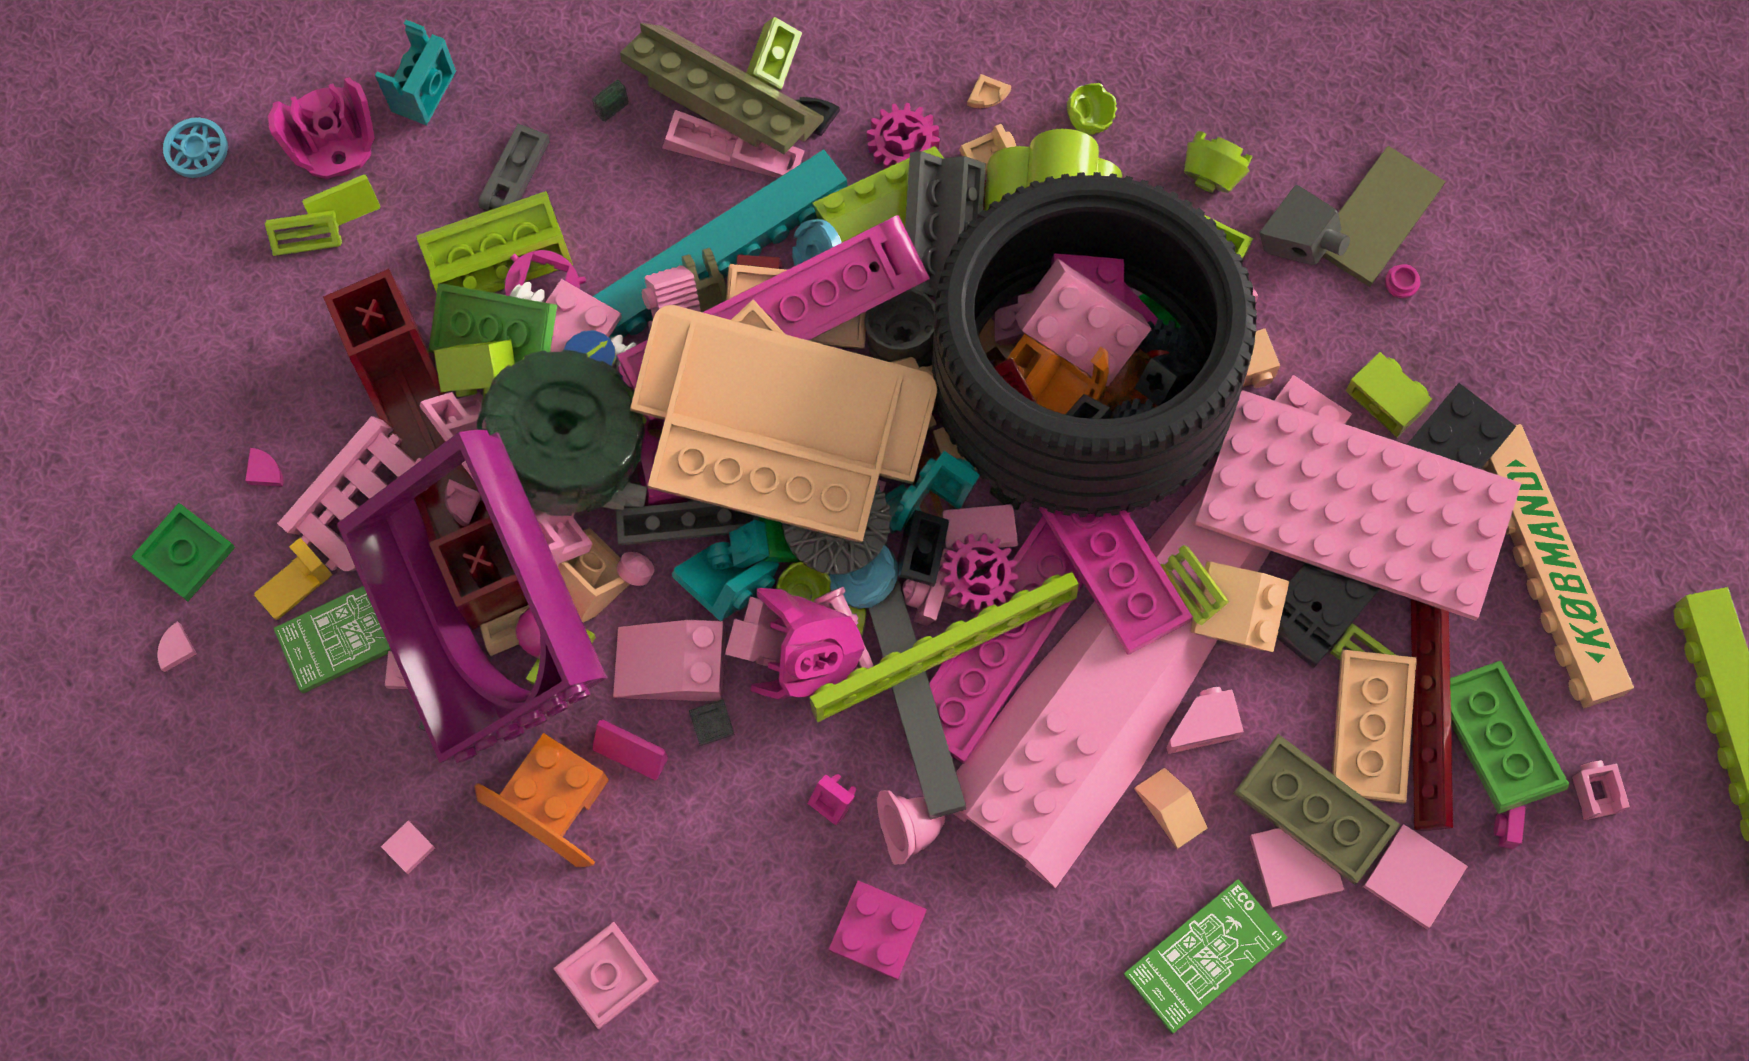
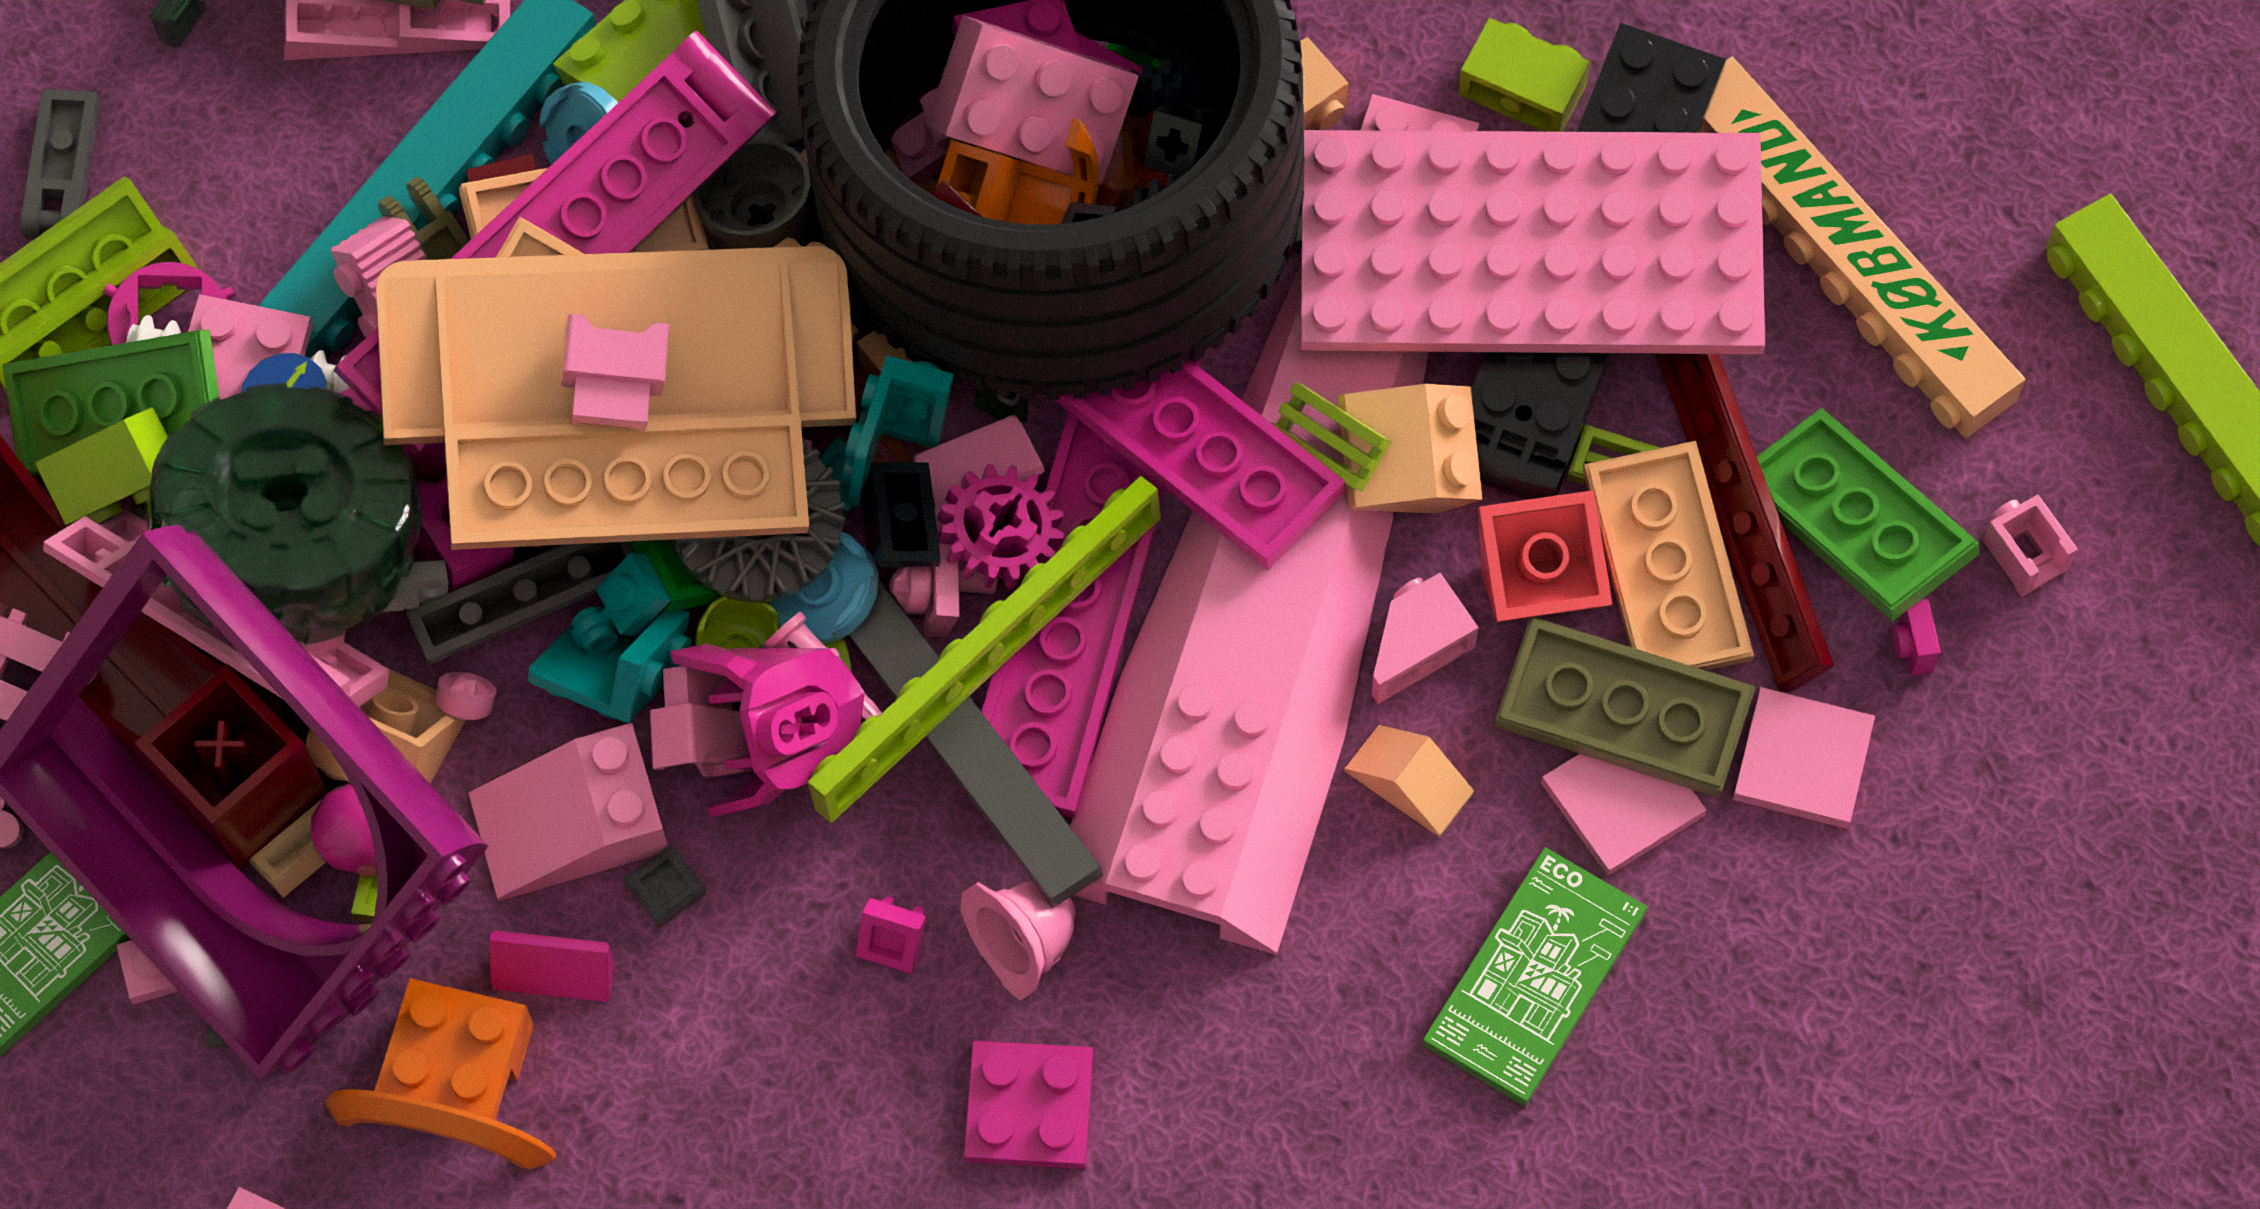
camera: 20 degrees left, 5 degrees down
(461, 502) = (155, 680): bright pink tile -> none
(775, 413) = (613, 372): none -> bright pink piece
(1298, 700) = (1543, 556): none -> coral slope

